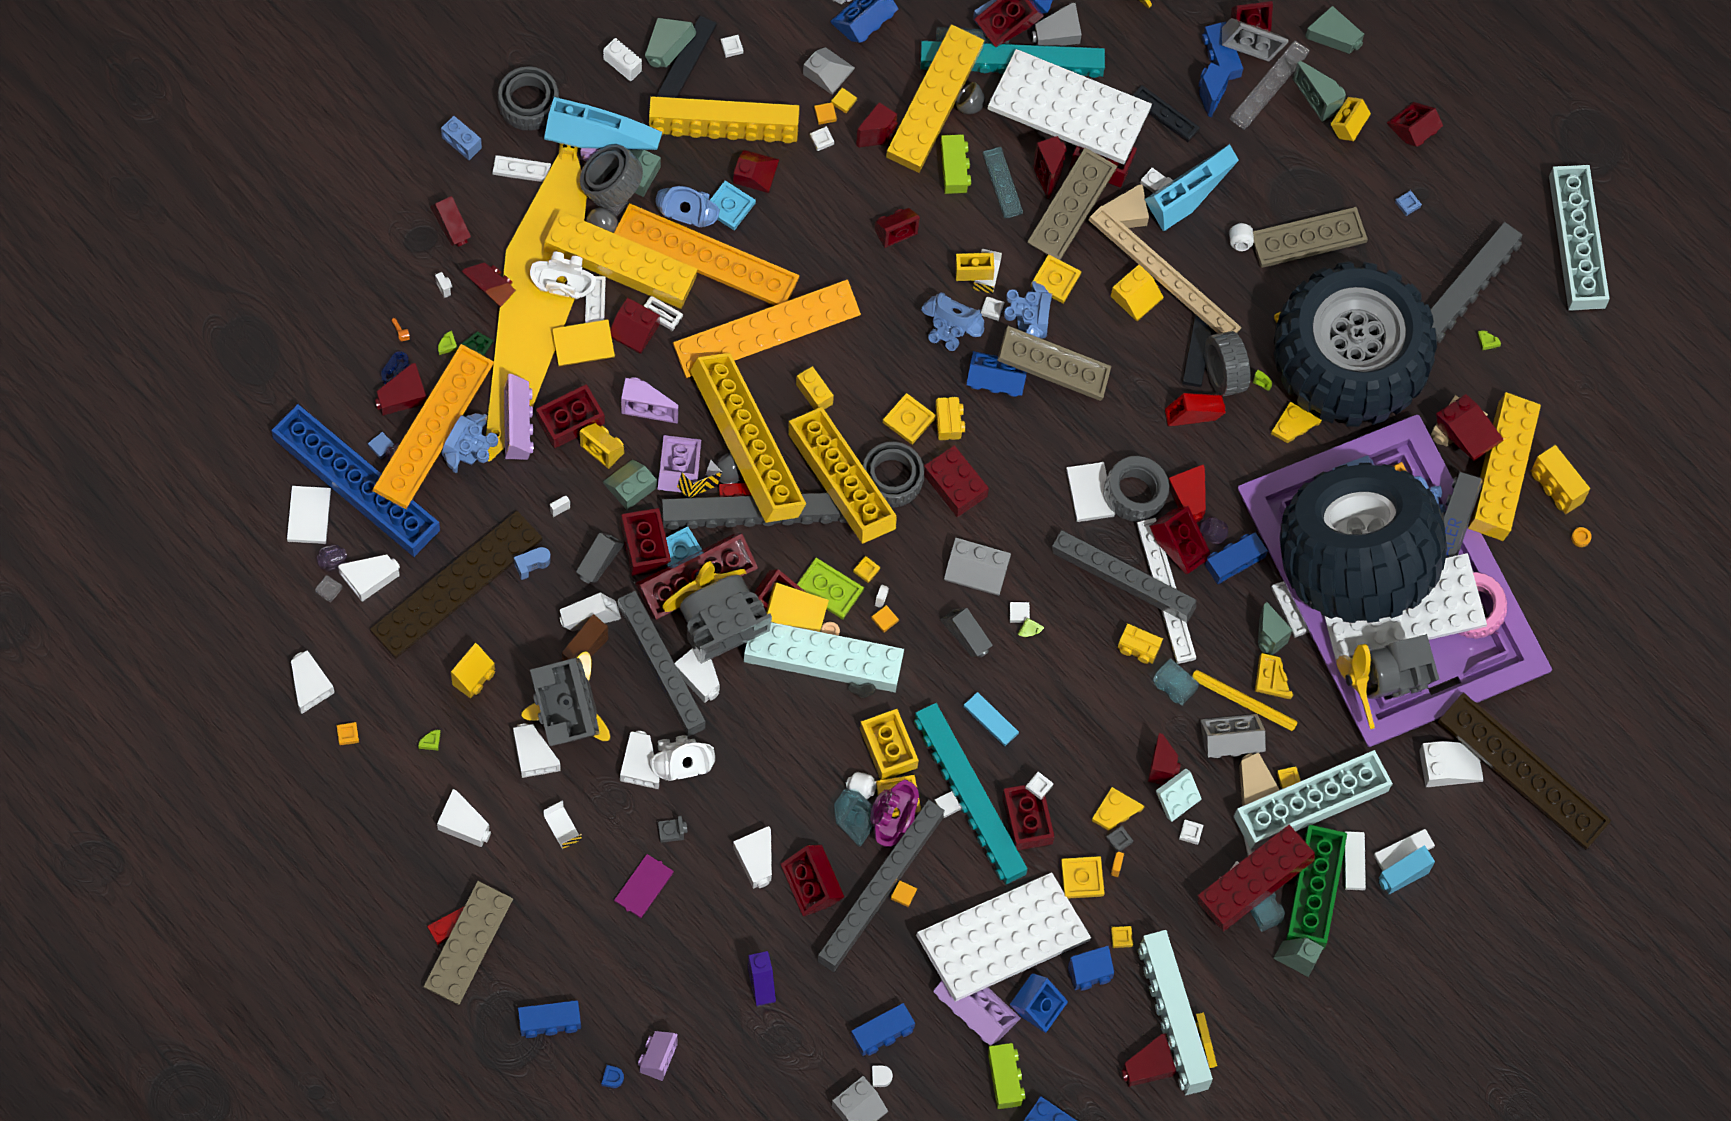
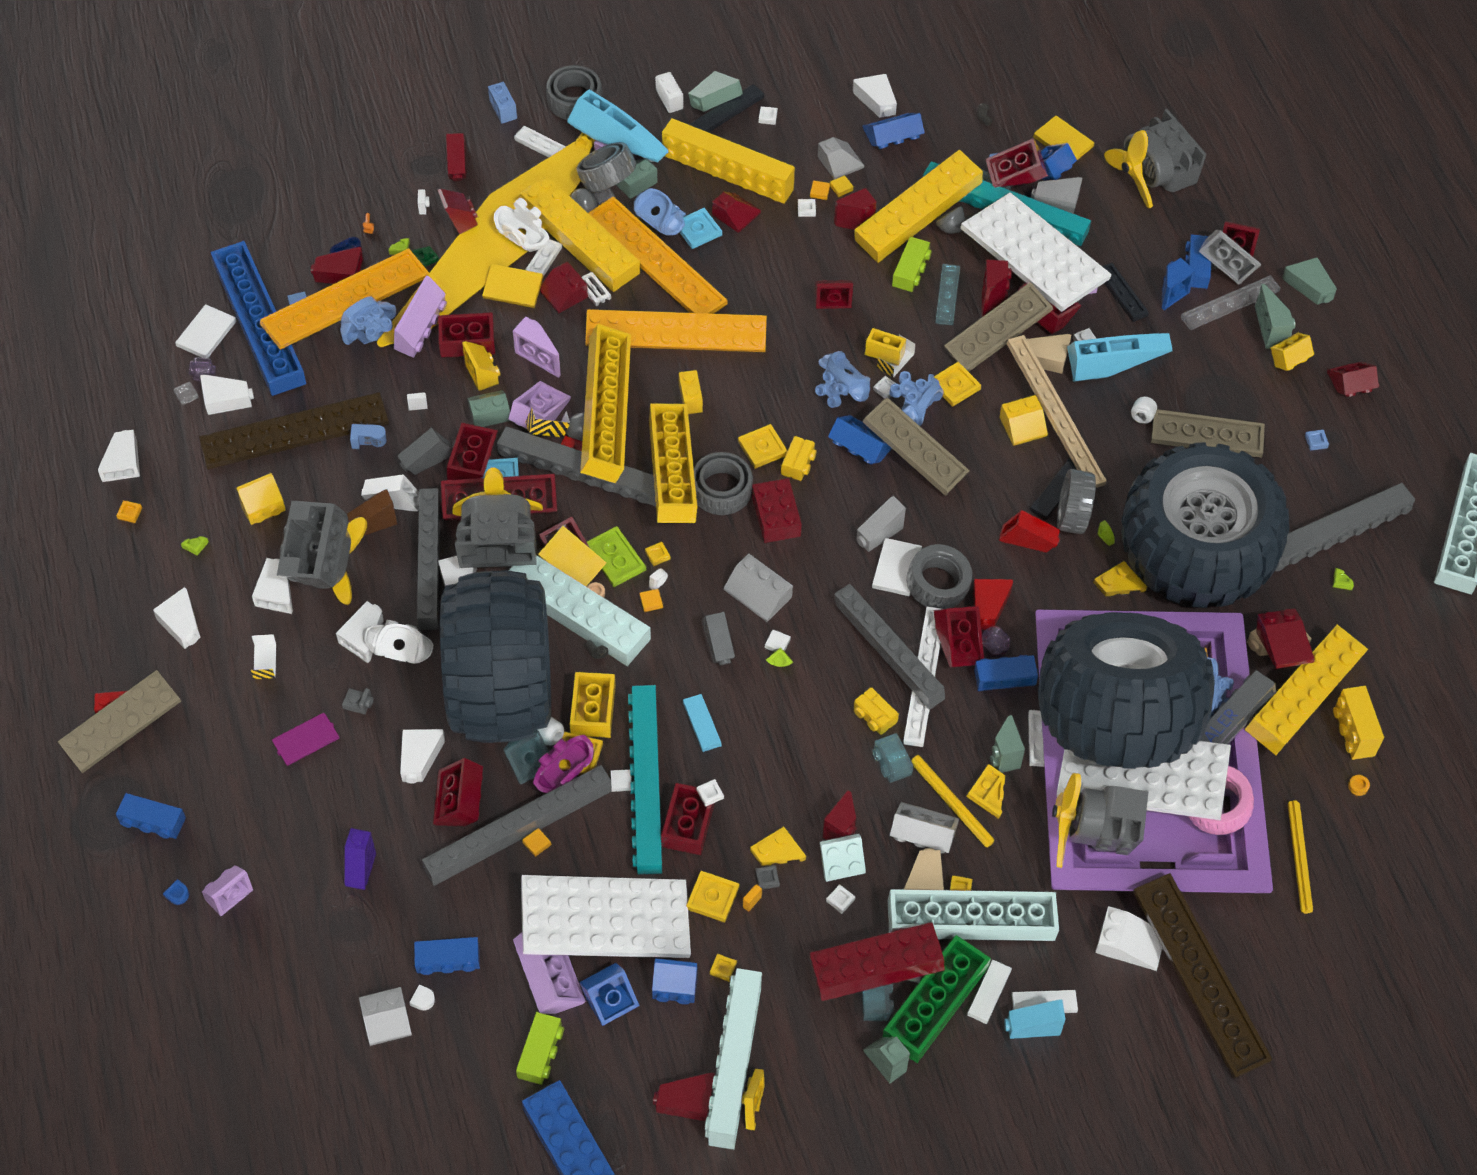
camera: 30 degrees right, 10 degrees down
(801, 743) = (495, 656): none -> black wheel
(1059, 457) = (882, 524): none -> light grey slope
(1559, 626) = (1300, 857): none -> yellow axle

